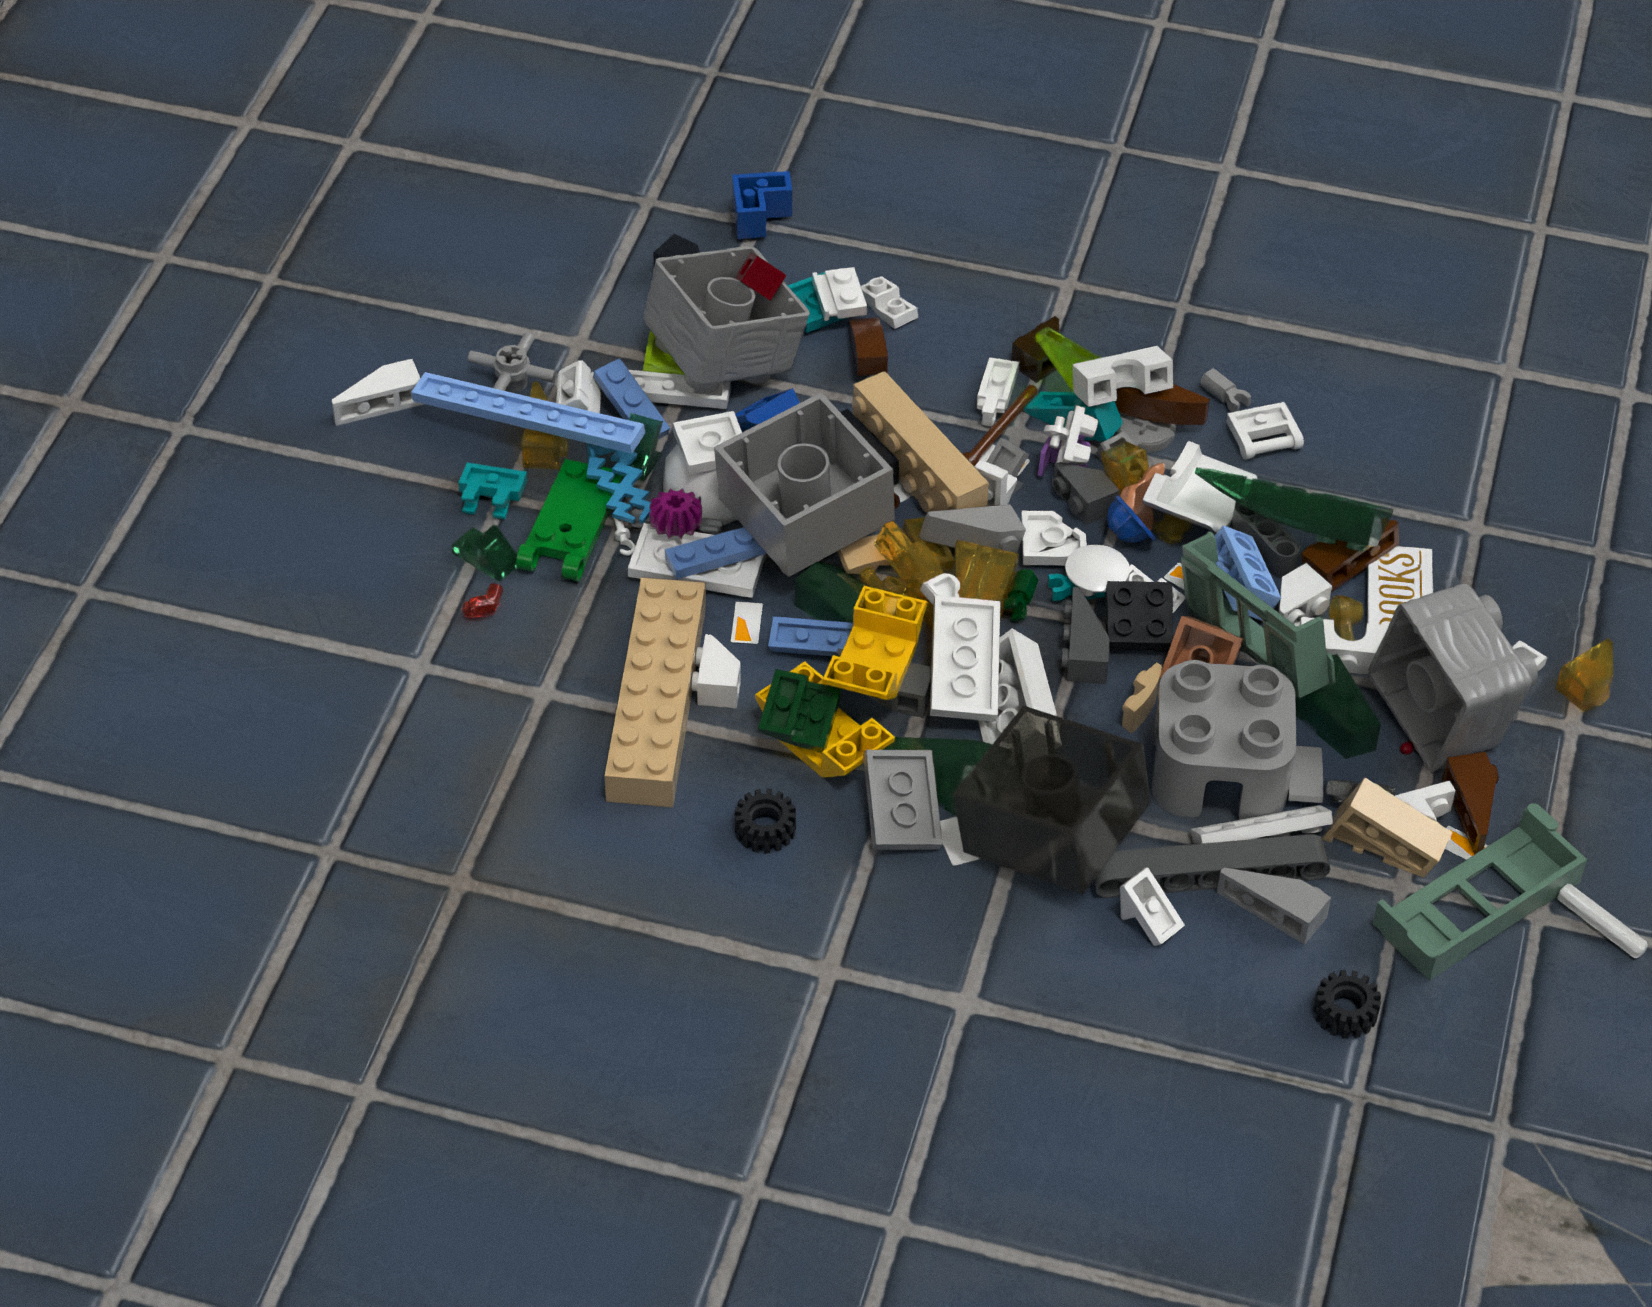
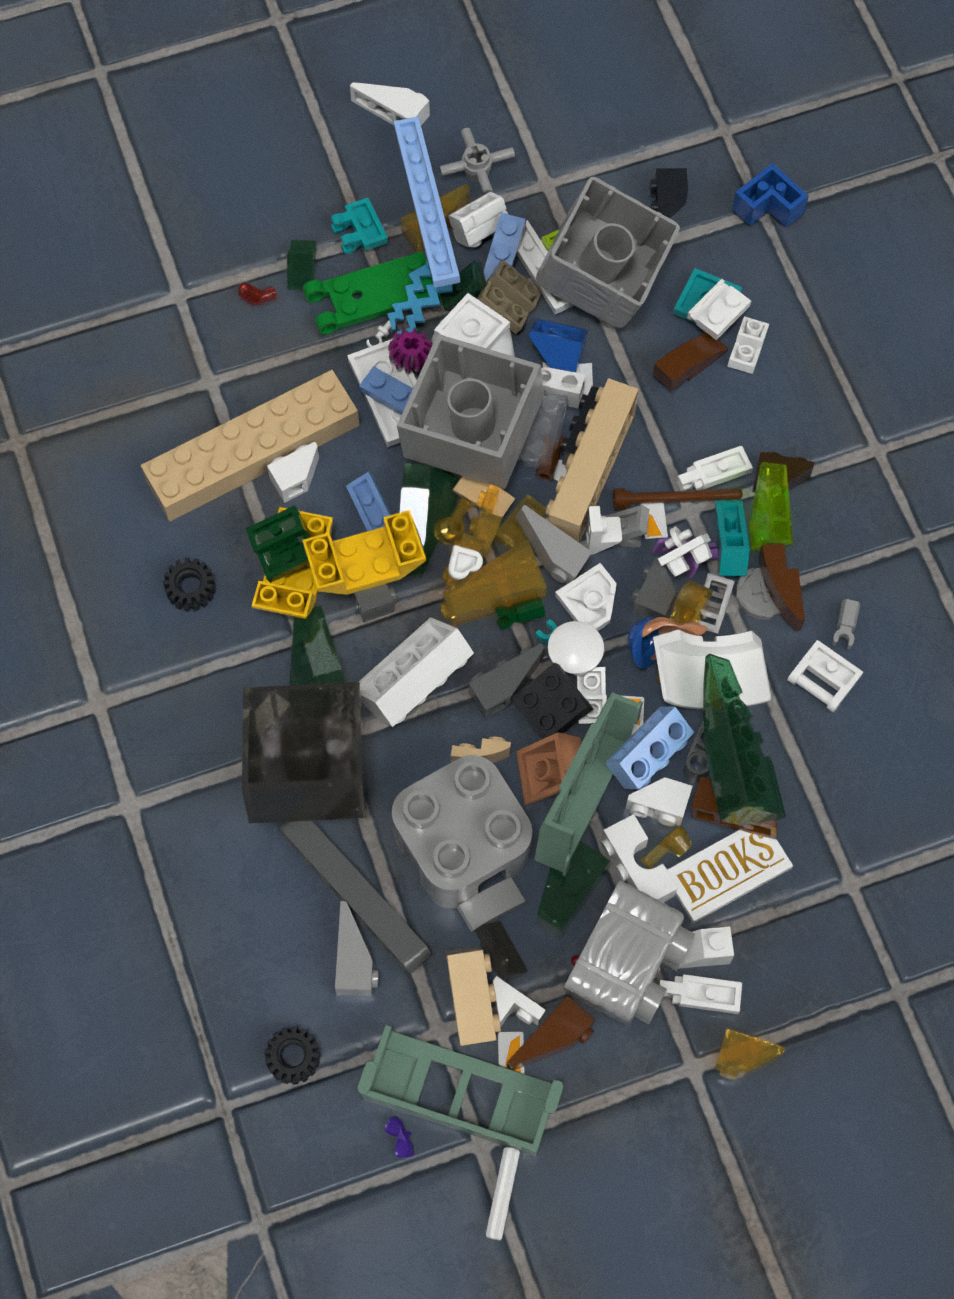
camera: 55 degrees right, 20 degrees up
(669, 411) = (510, 295): none -> dark tan slope
(746, 622) = (365, 458): white sticker -> none
(760, 276) = (646, 250): dark red panel -> none
(902, 800) = (260, 654): light grey plate -> none
(965, 658) = (412, 615): white plate -> none
(1144, 369) = (750, 532): white arch -> none
(1147, 902) = (279, 874): white slope -> none
(1272, 825) = (415, 904): white plate -> none
(1503, 968) = (403, 1147): none -> dark purple piece

